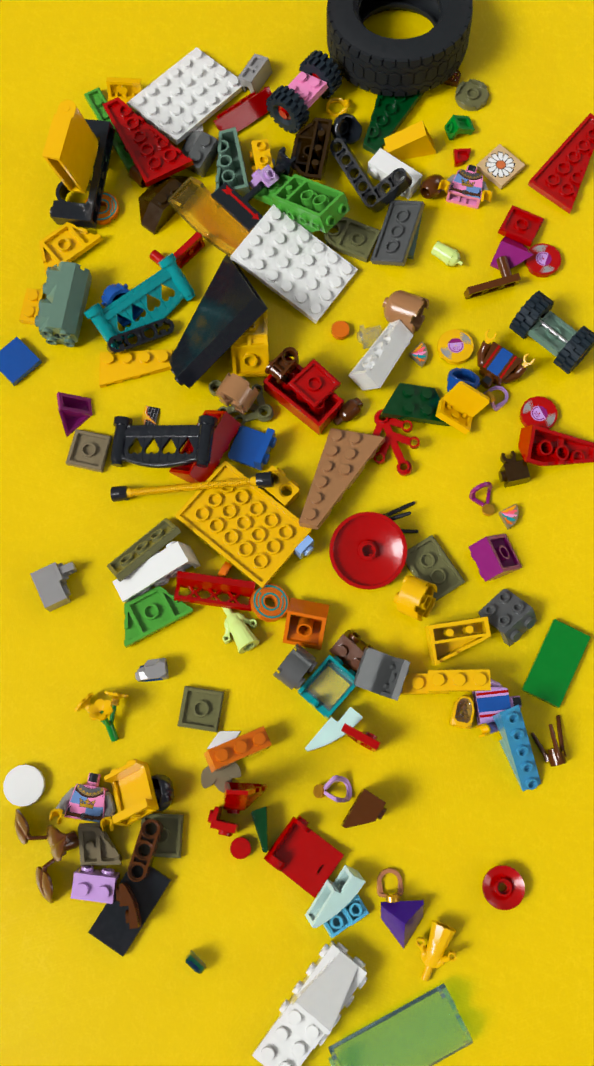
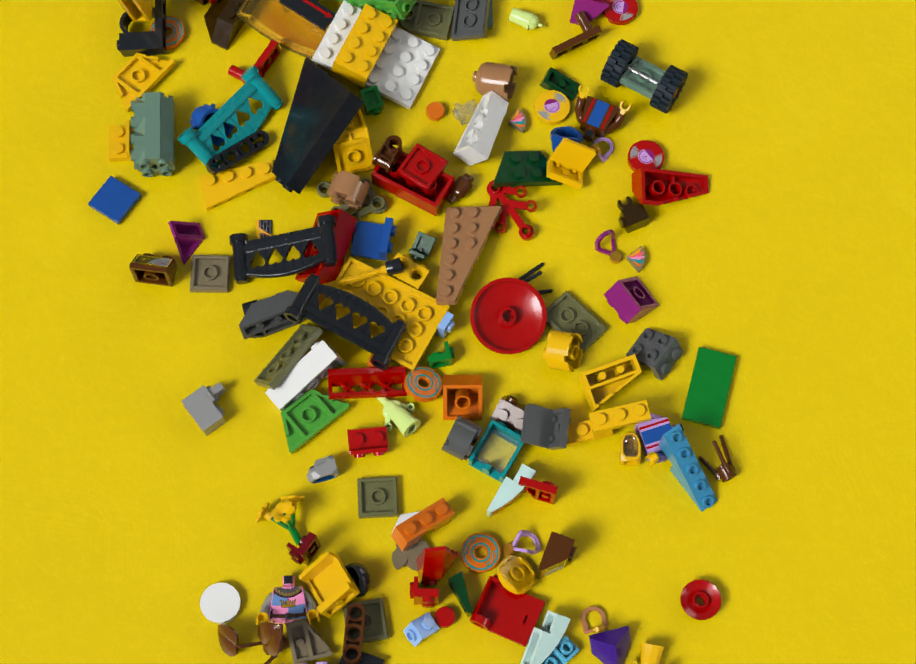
camera: 15 degrees left, 5 degrees down
(34, 436) = (153, 269): none -> reddish brown slope
(118, 750) = (308, 548): none -> dark red bracket
(138, 504) = (267, 316): none -> dark grey wedge
(203, 650) = (368, 440): none -> red bracket
(214, 856) = (421, 629): none -> light blue bracket
(235, 557) = (307, 306): none -> black piece
(280, 308) = (372, 100): none -> green bracket
(283, 252) = (364, 45): none -> yellow brick
(289, 580) = (440, 359): none -> green bracket
(298, 463) = (422, 246): none -> bracket
(302, 788) = (483, 541): none -> orange tile
(320, 820) = (516, 574): none -> yellow tile
(466, 322) = (556, 81): none -> dark green slope

